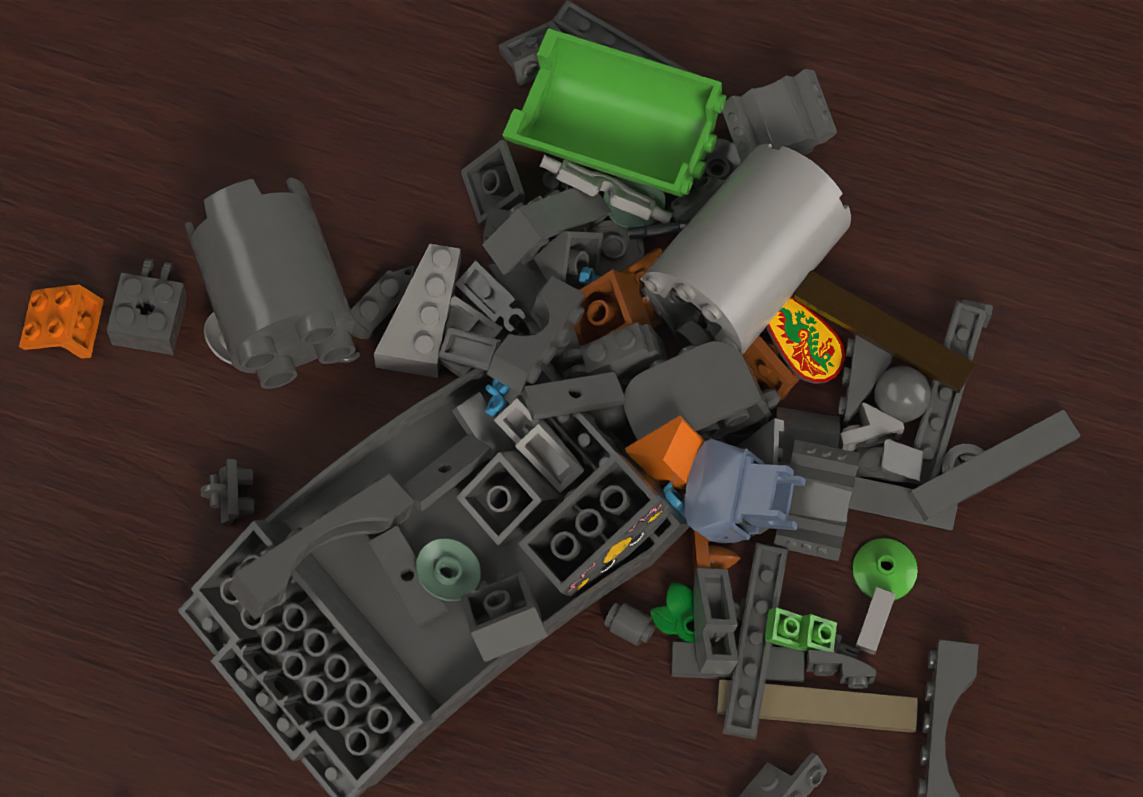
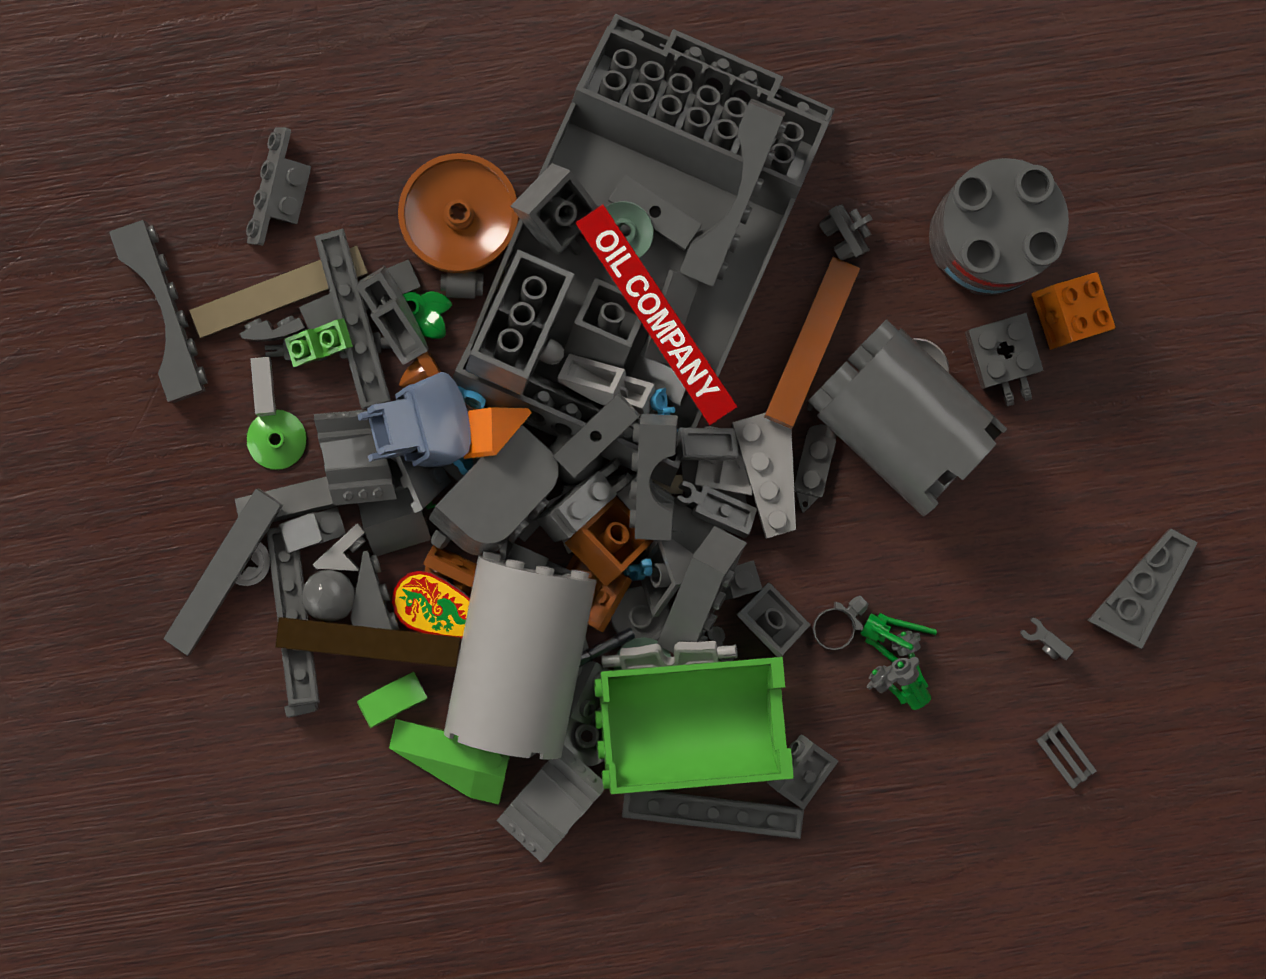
camera: 160 degrees right, 20 degrees up
(86, 397) = (999, 226): none -> dark grey brick
(142, 56) = (1141, 596): none -> dark grey wing
(251, 48) = (1053, 645): none -> dark grey plate
(321, 403) = (812, 343): none -> dark orange tile
(398, 75) = (905, 673): none -> dark grey plant
(402, 134) = (877, 629): none -> green plant
(410, 161) = (857, 606): none -> dark grey piece
(458, 477) = (656, 314): none -> red sticker
(600, 688) = (458, 213): none -> dark orange dish
(869, 225) = (465, 768): none -> bright green wedge
(886, 280) = (392, 700): none -> bright green slope

